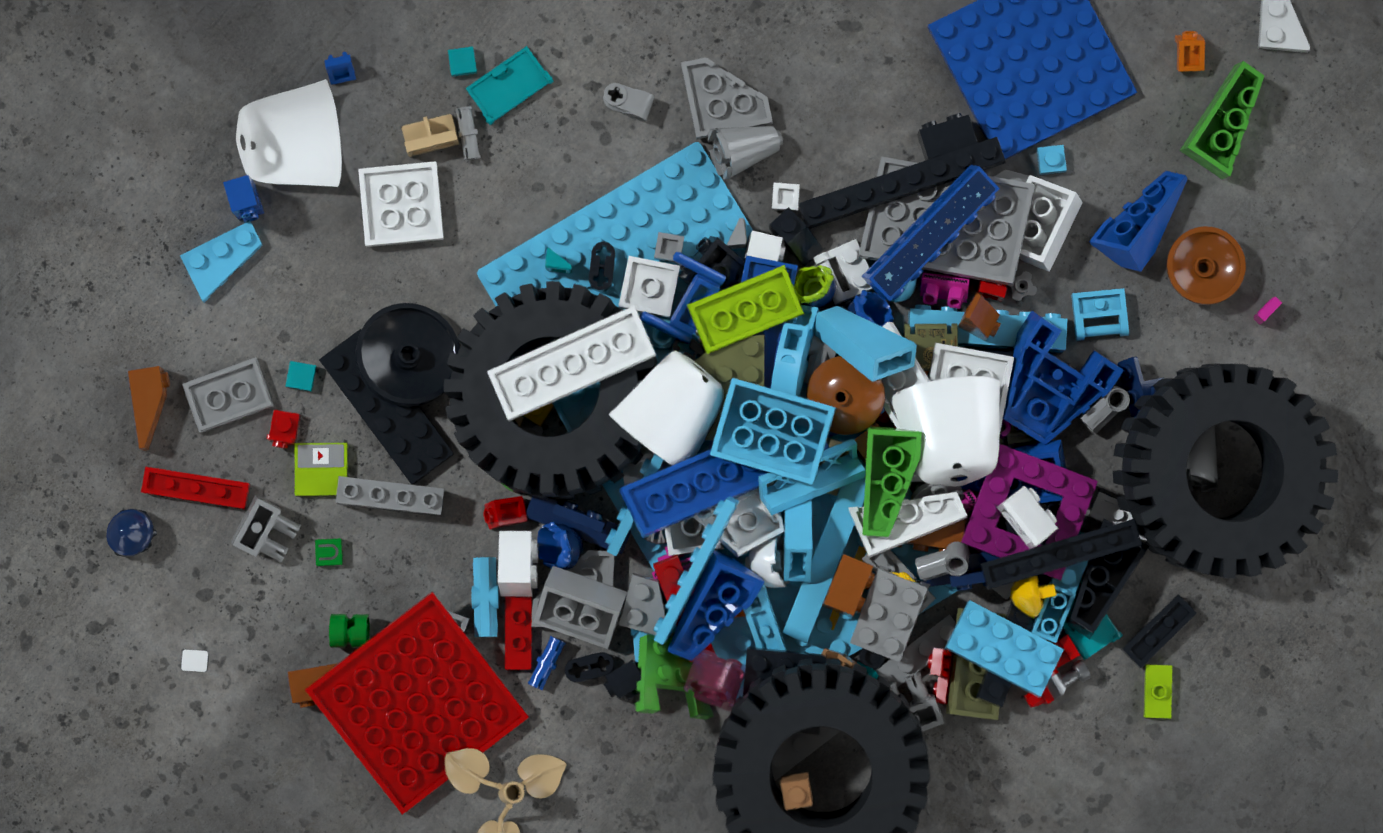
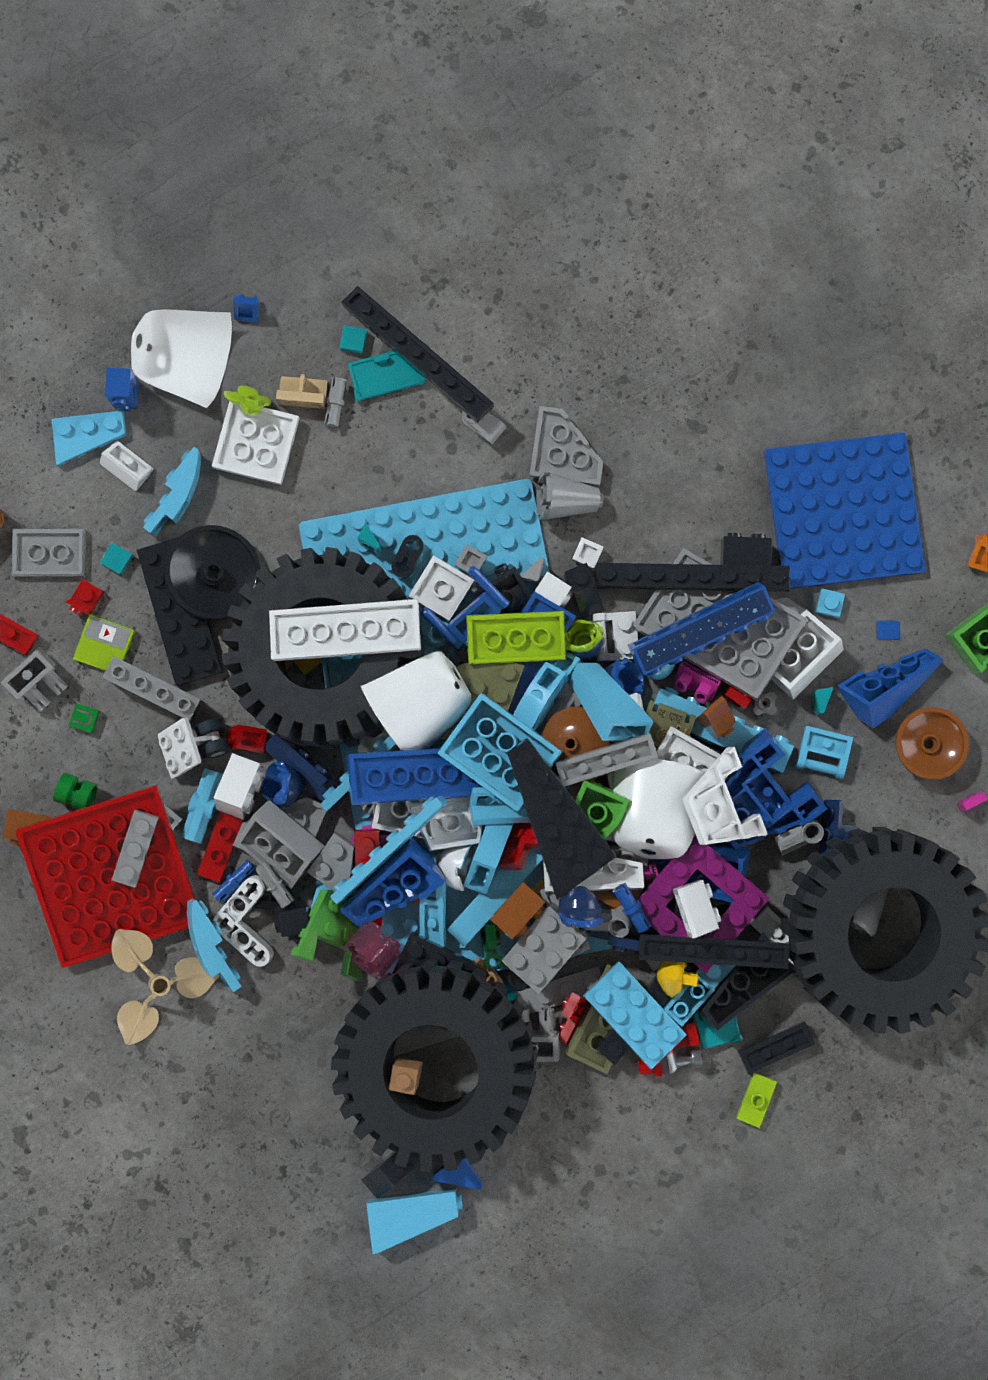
camera: 20 degrees right, 0 degrees up
(274, 276) = (125, 465): none -> white slope
(342, 276) = (182, 485): none -> medium azure slope
(377, 161) = (249, 399): none -> lime plate
(434, 664) = (135, 848): none -> light grey plate
(441, 544) = (181, 746): none -> white plate
(536, 53) = (418, 354): none -> black plate
(538, 730) = (205, 937): none -> medium azure slope
(561, 700) = (235, 919): none -> white beam
(590, 650) = (274, 884): none -> light grey axle
(827, 510) = (518, 846): none -> red plate
(831, 629) = (490, 940): none -> dark green plate
(866, 488) = (564, 833): none -> black wing
(883, 399) = (606, 759): none -> light grey plate
(911, 559) = (580, 908): none -> dark blue hair
(962, 540) = (632, 907): none -> blue pin
(1006, 408) = (712, 807): none -> white wing
(1077, 261) = (820, 699): none -> teal slope
(1120, 165) = (888, 630): none -> blue sticker

